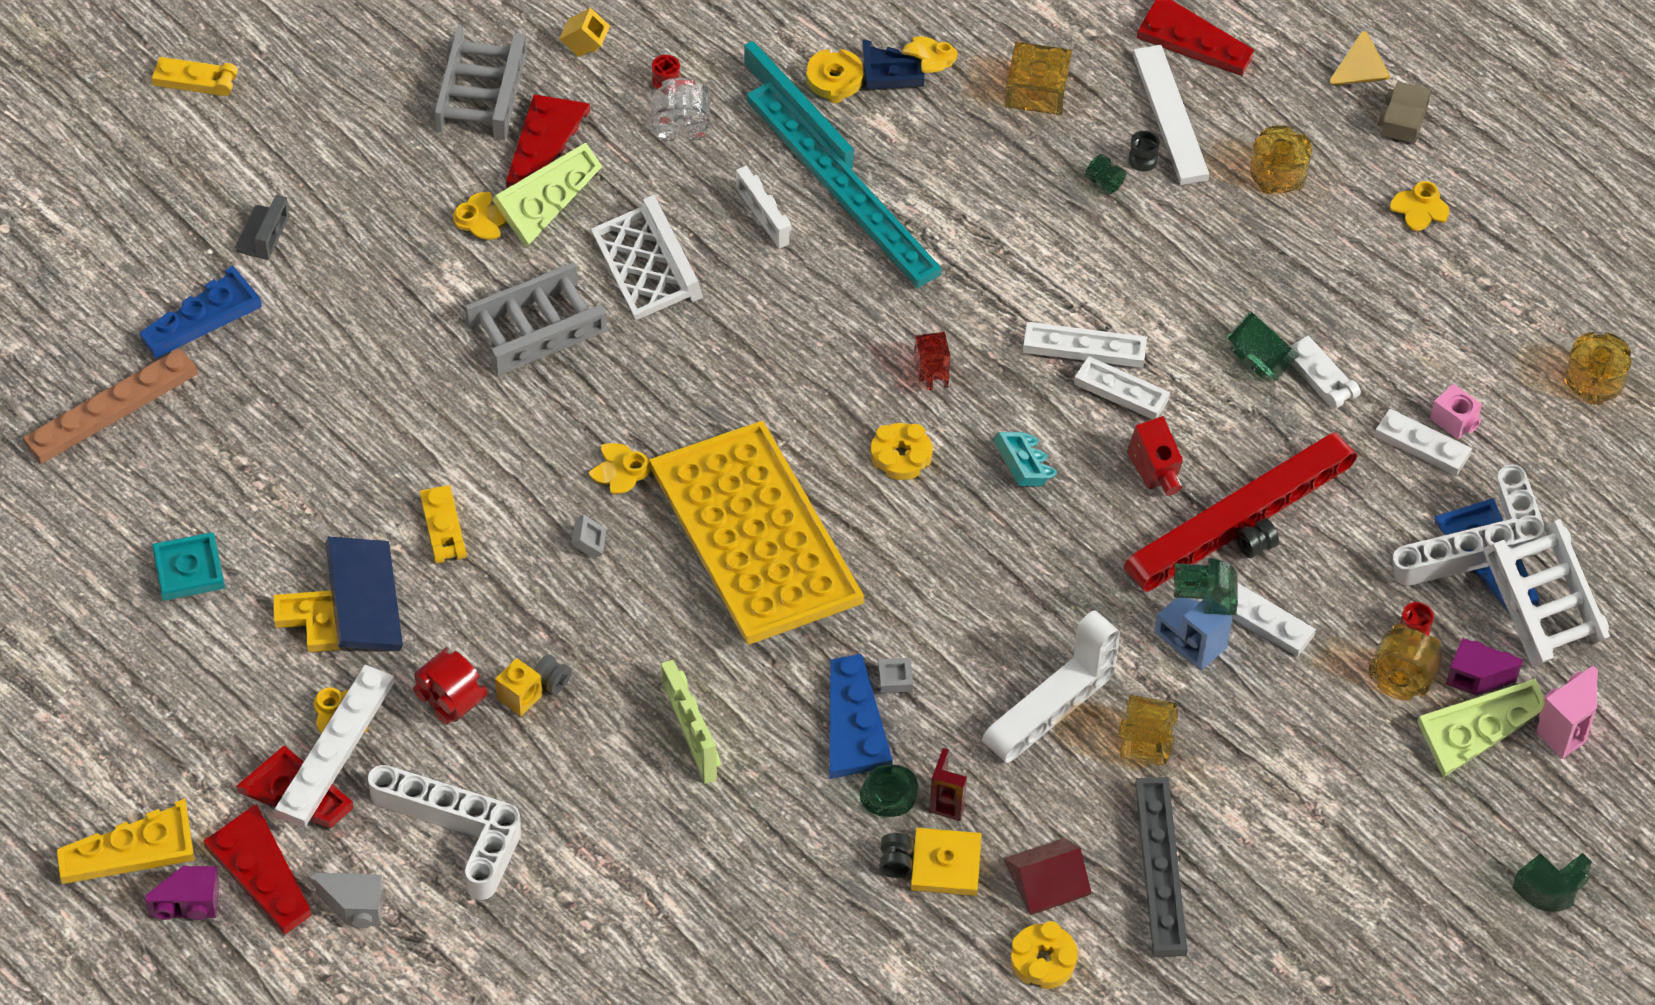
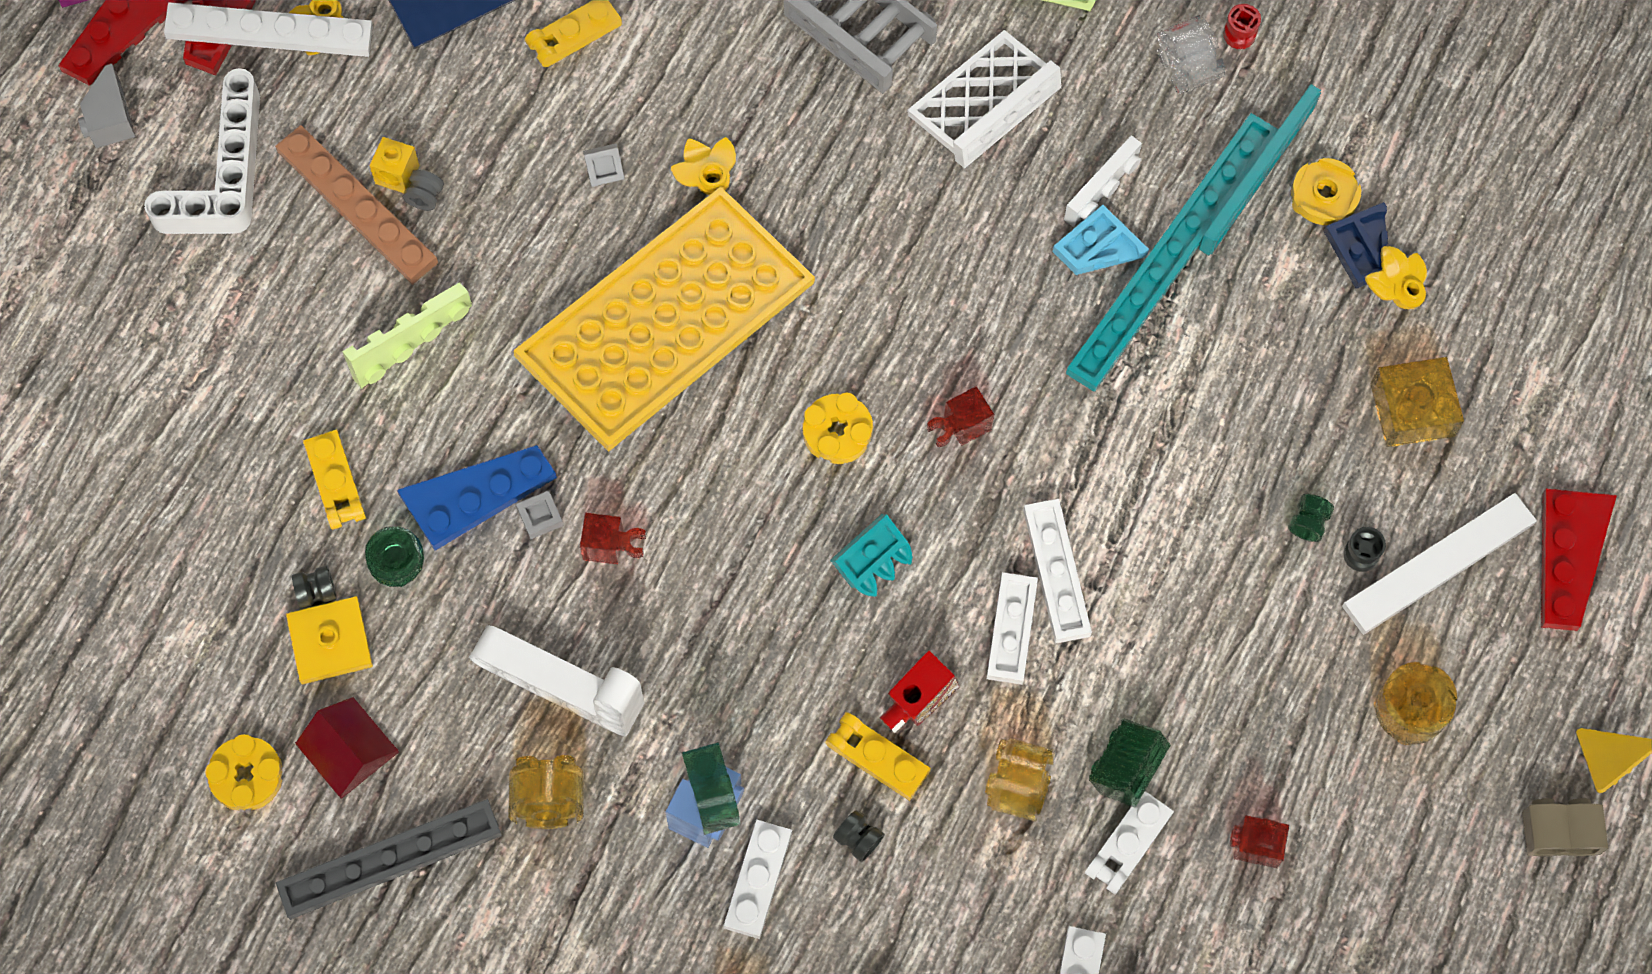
camera: 70 degrees right, 15 degrees up
(449, 685) = (364, 100): red brick -> none
(536, 733) = (356, 204): none -> nougat plate
(798, 819) = (334, 478): none -> yellow plate
(815, 228) = (1099, 244): none -> medium azure wing
(938, 631) = (604, 538): none -> clear red brick
(947, 790) = (400, 598): dark red panel -> none
(1190, 505) = (878, 757): none -> yellow plate
(1243, 508) = (892, 809): red beam -> none
(1253, 414) = (1020, 779): none -> clear yellow brick
(1352, 289) = (1259, 841): none -> clear red brick
(1420, 206) = (1424, 888): yellow plate -> none

